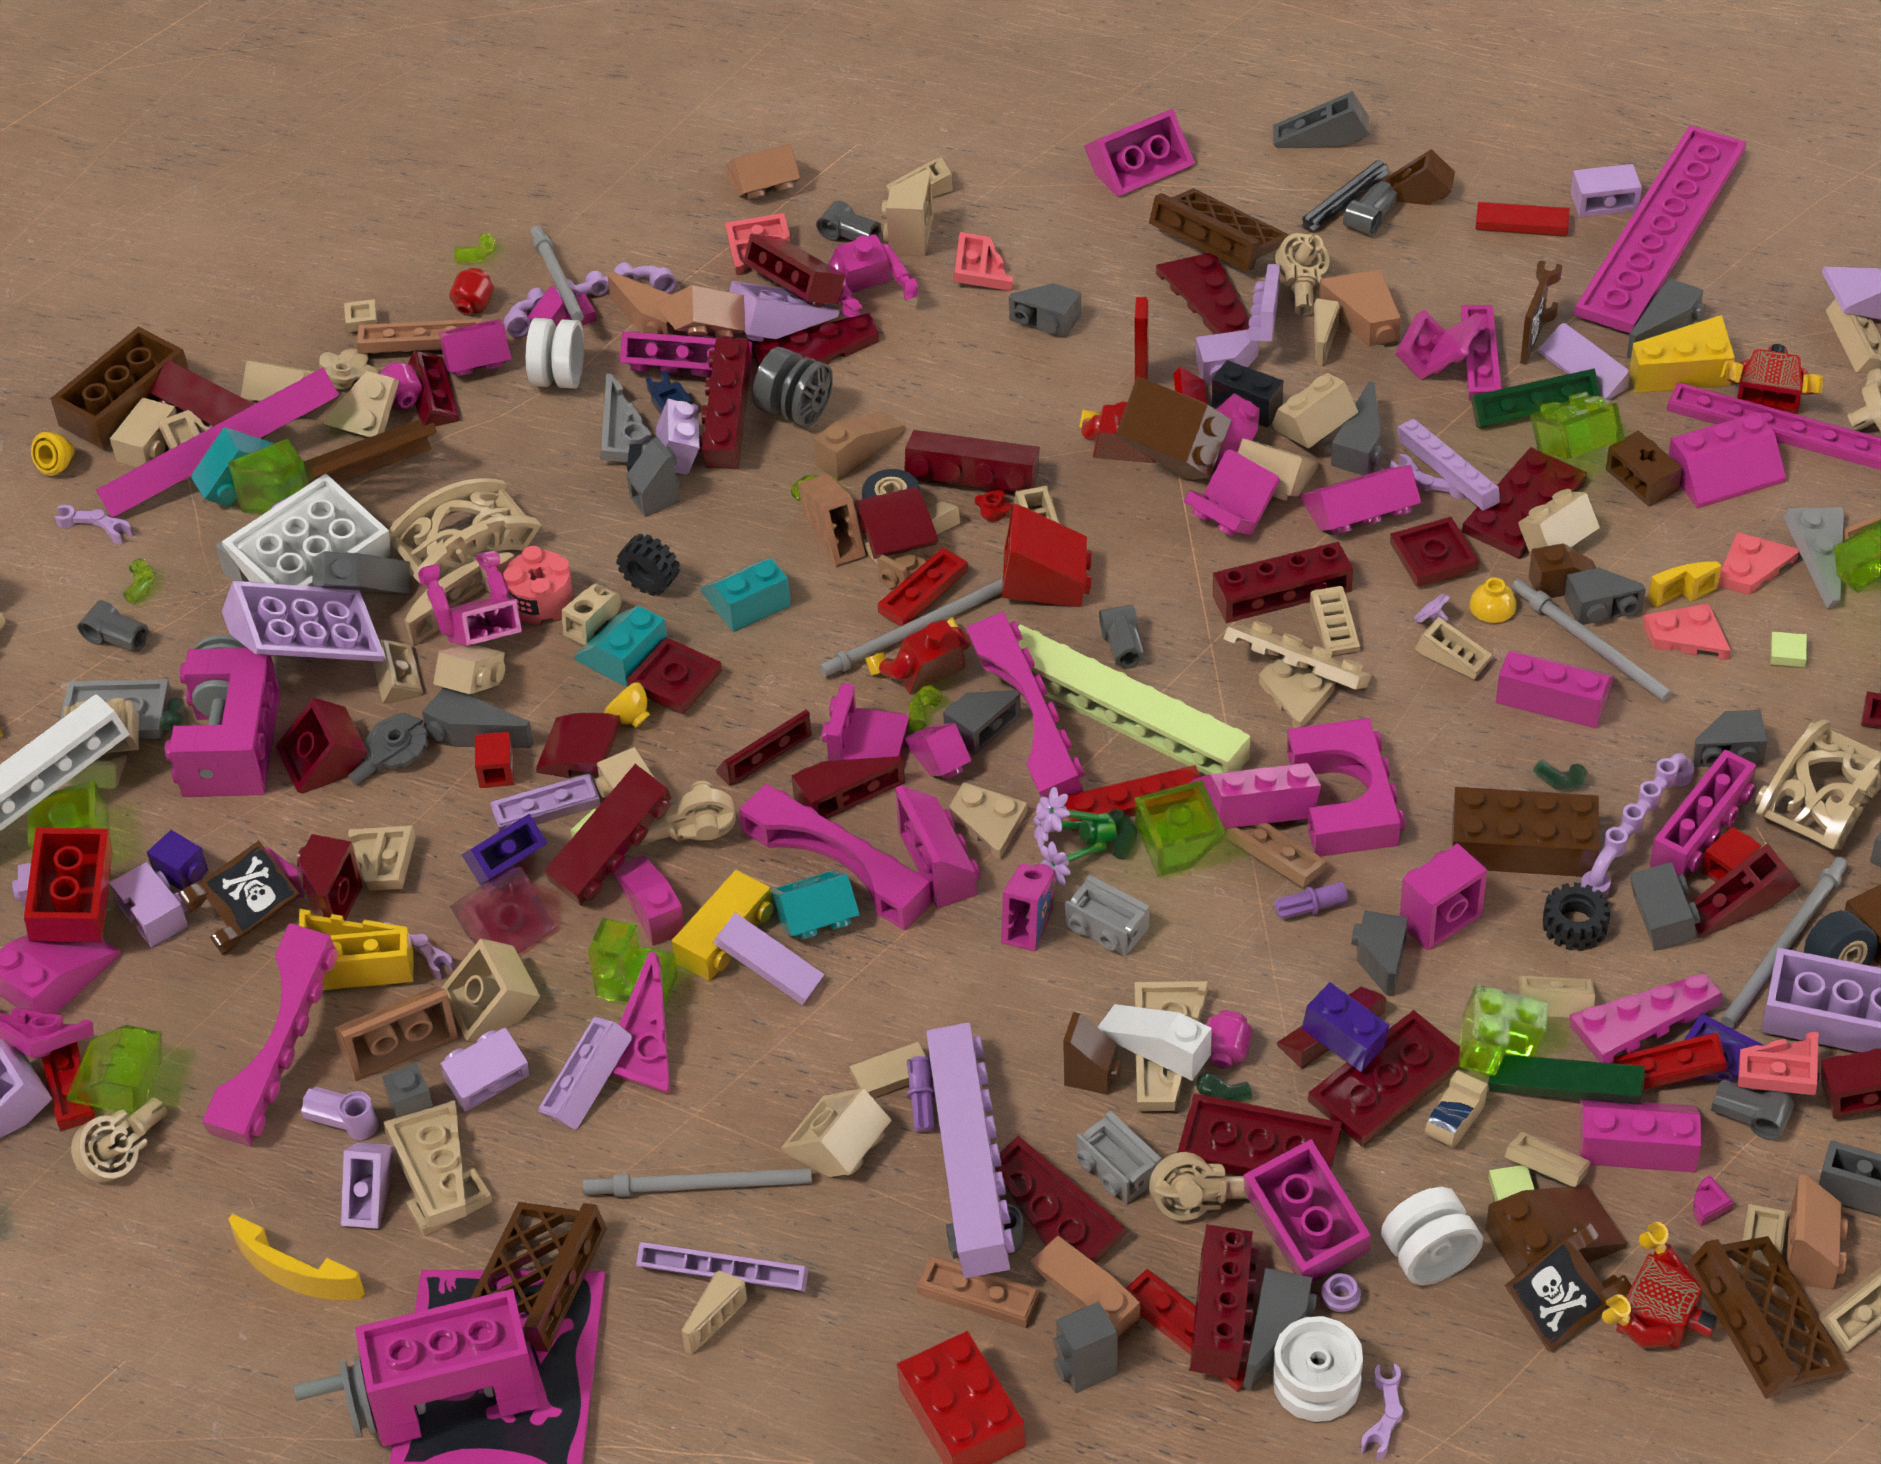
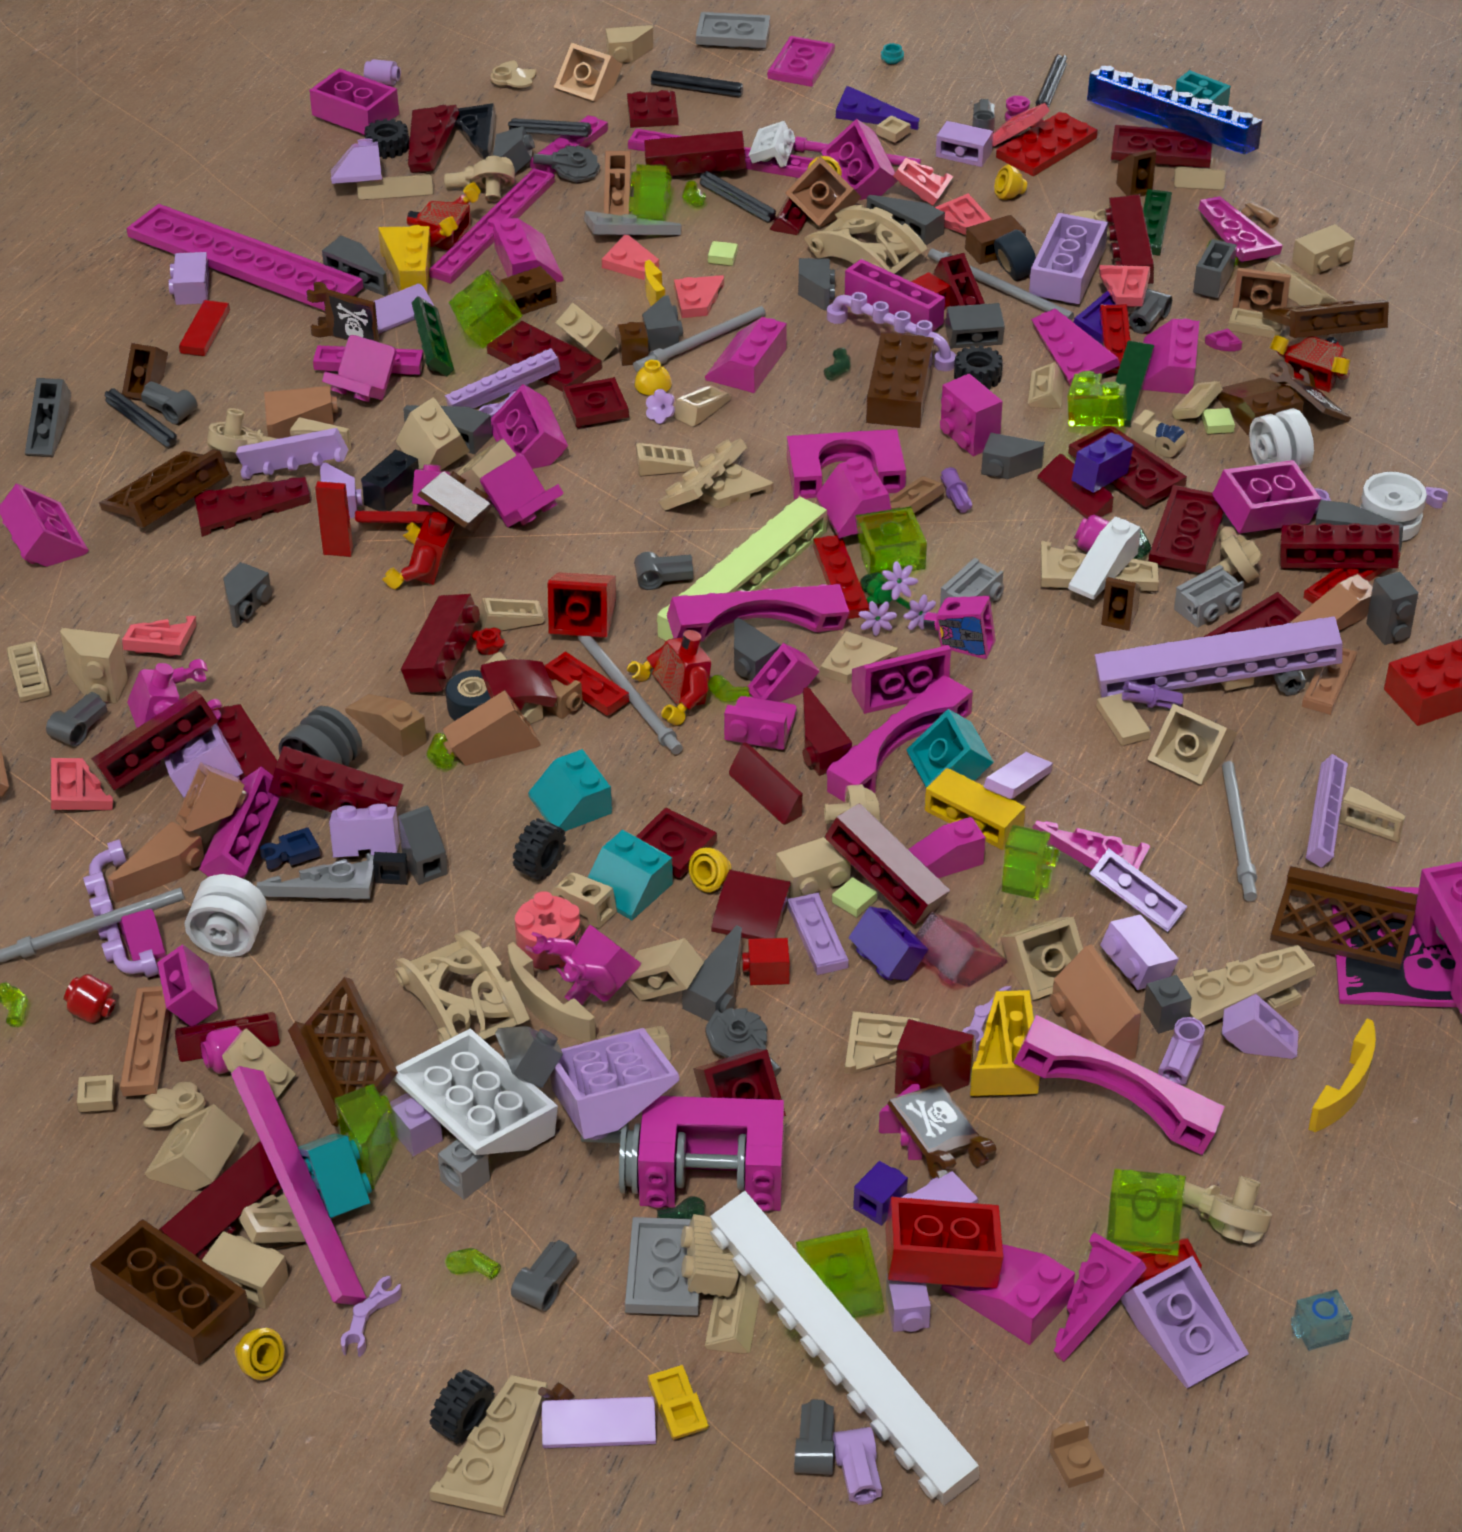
camera: 90 degrees left, 5 degrees down
(1280, 581) = (617, 479): dark red brick -> none

